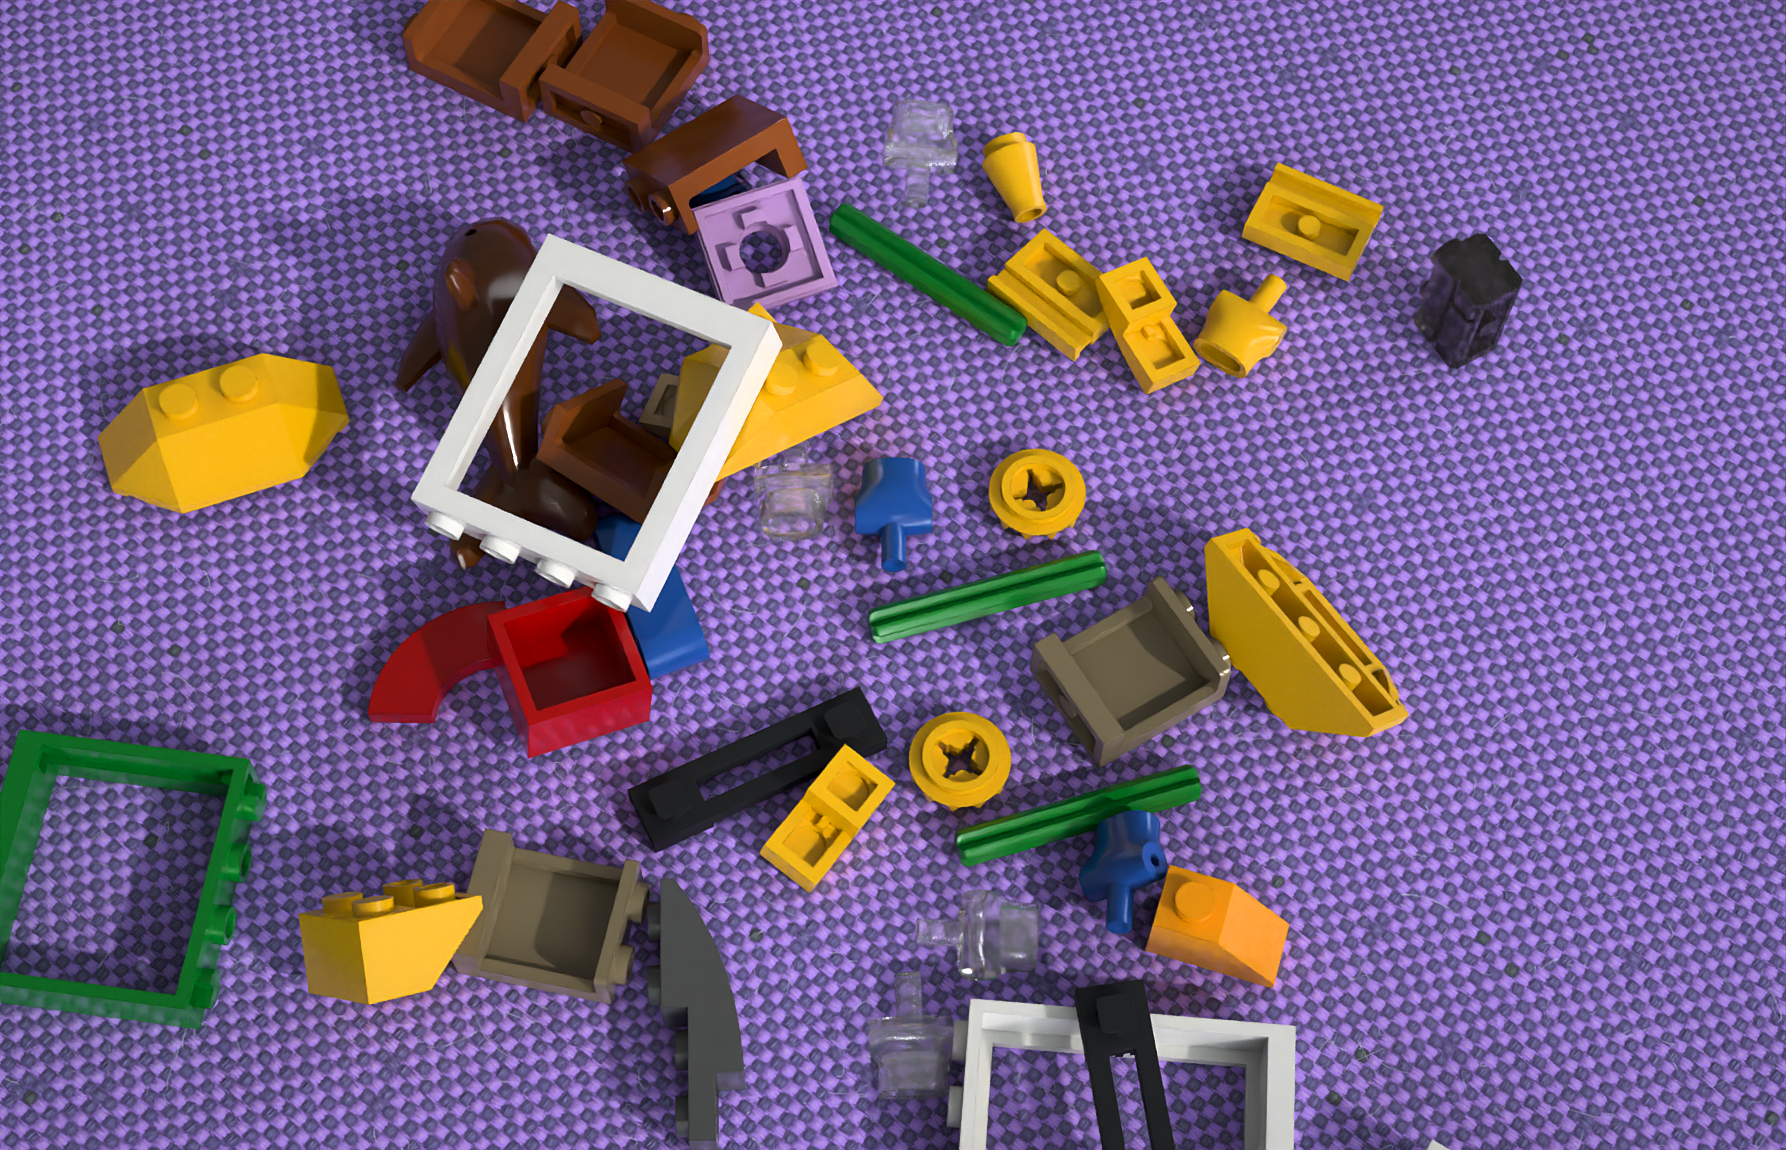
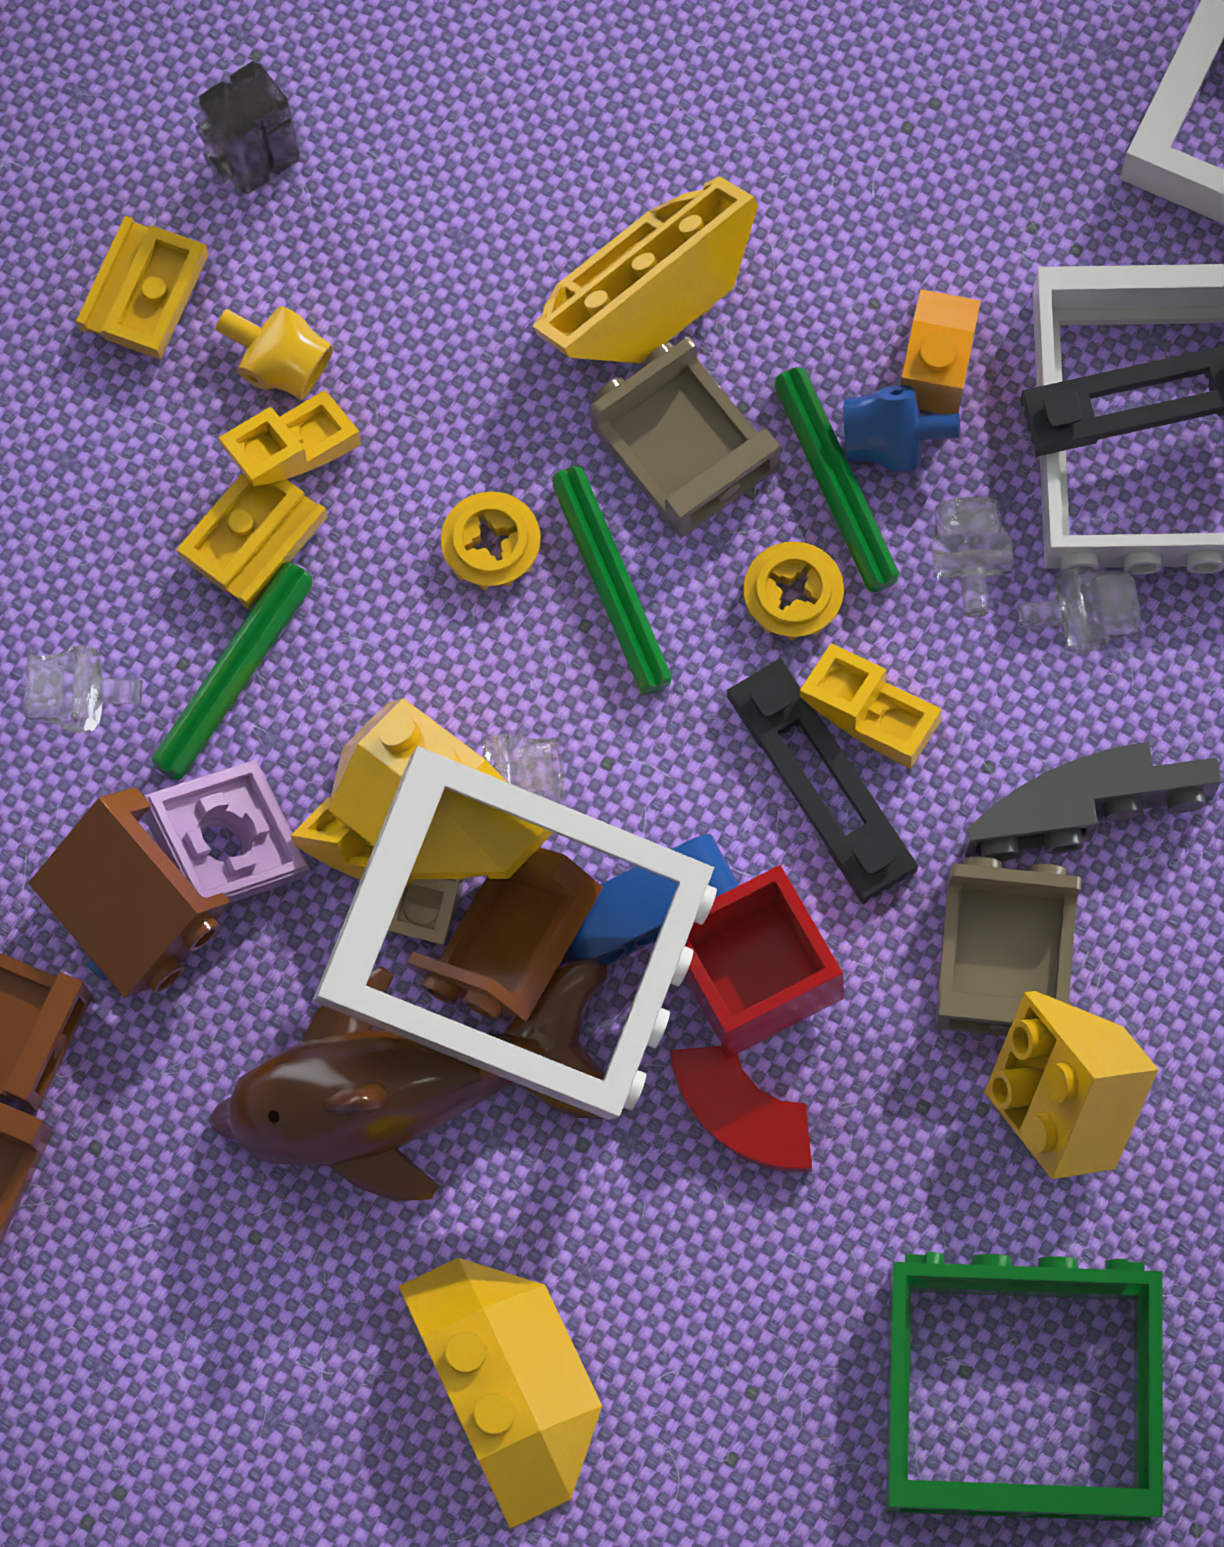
camera: 90 degrees left, 10 degrees up
(893, 506) = (522, 676): blue piece -> none
(1015, 173) = (104, 586): yellow cone -> none

